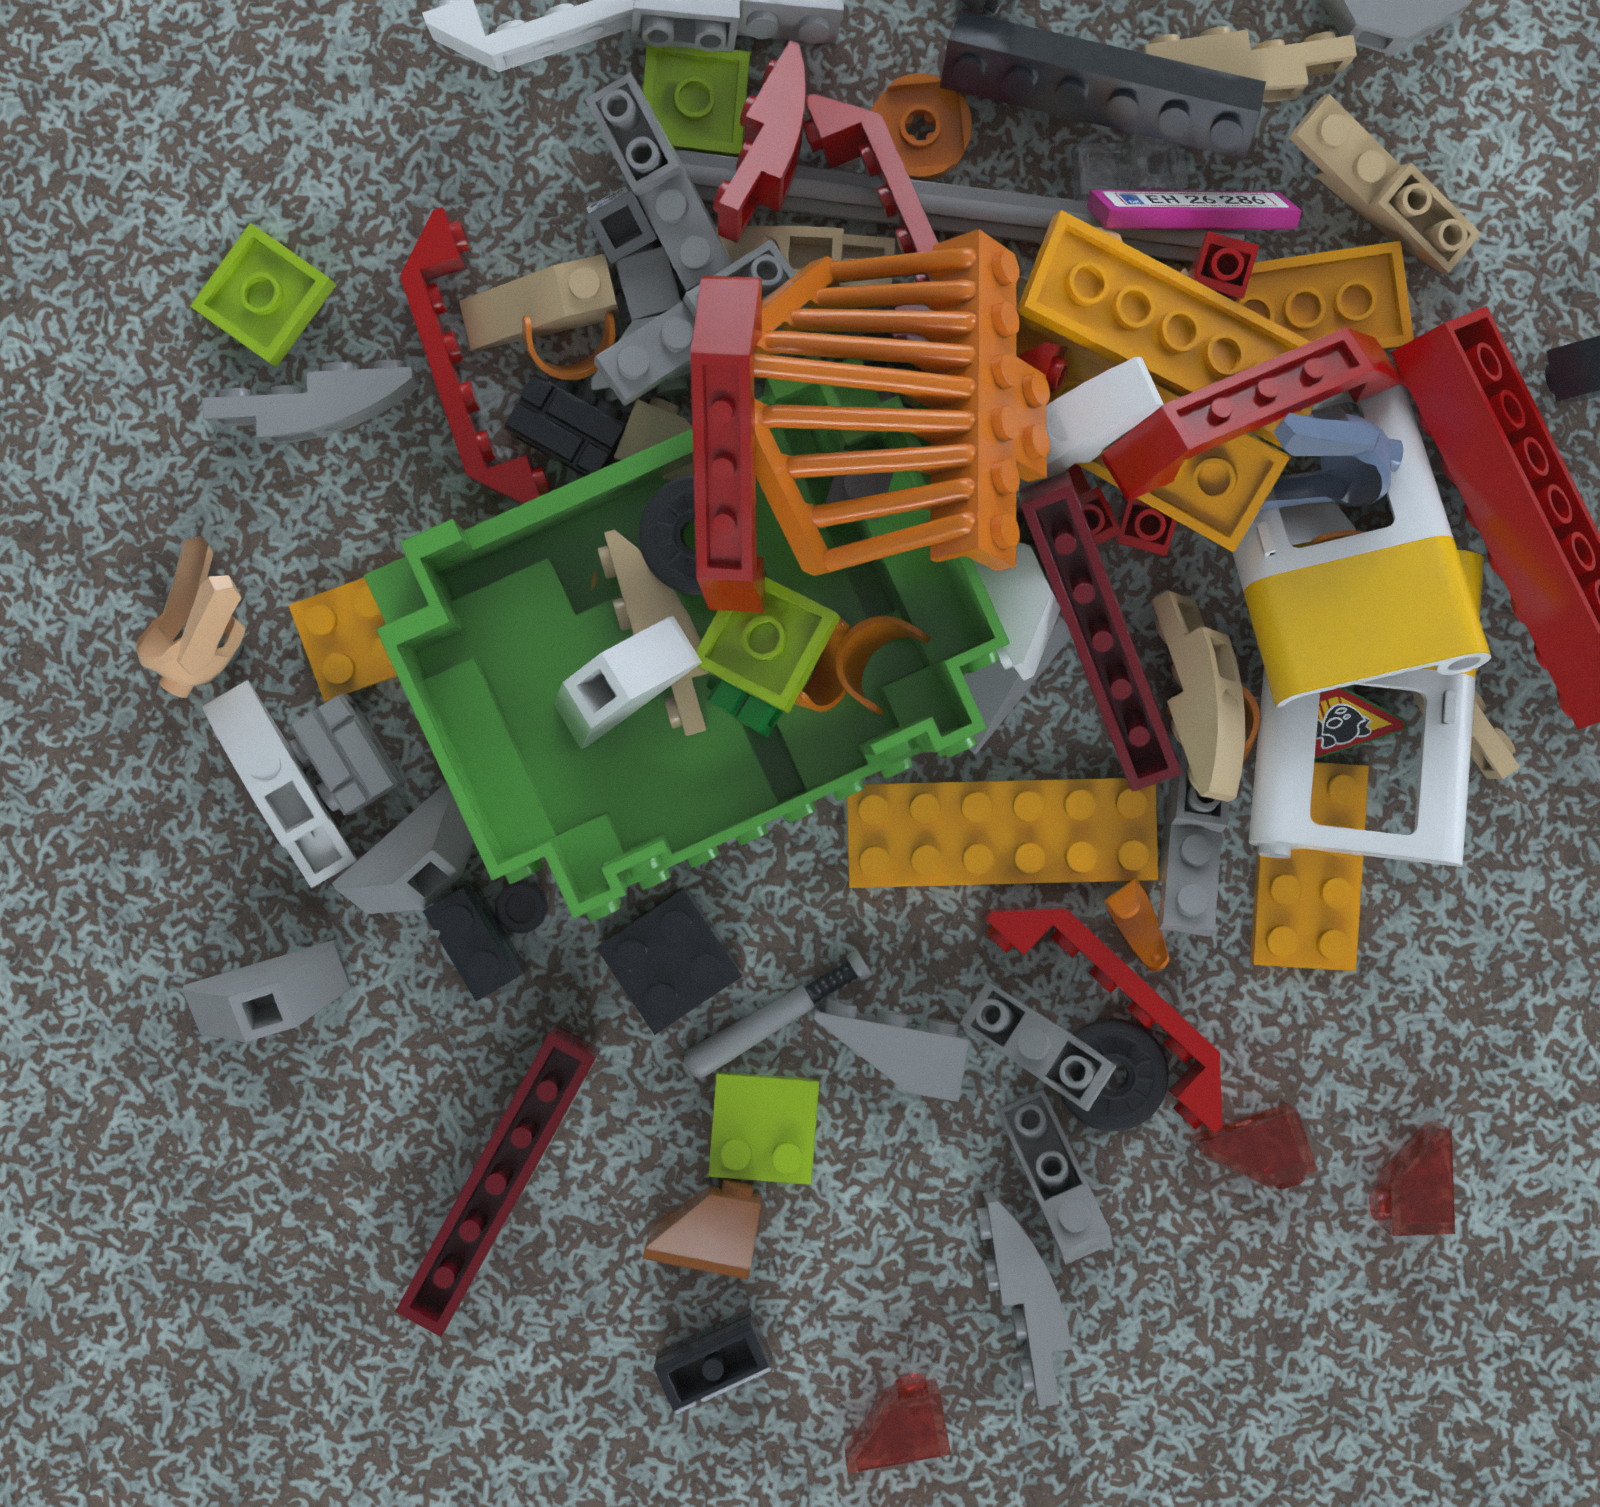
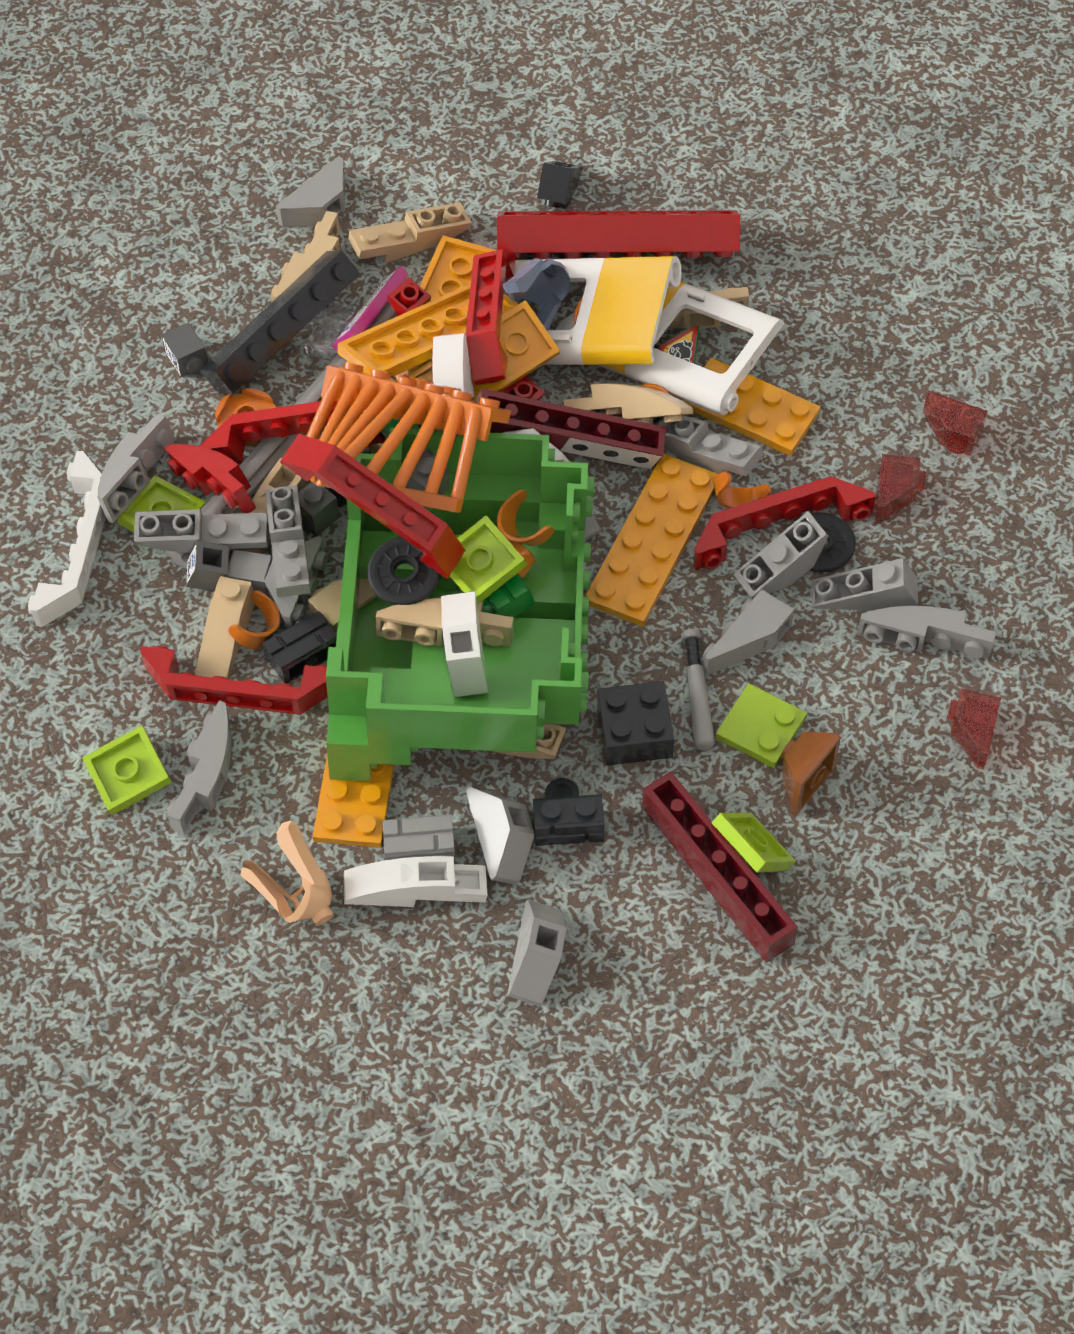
camera: 60 degrees left, 30 degrees down
(555, 1212) = (753, 842): none -> lime plate
(713, 1361) = (887, 799): black brick -> none

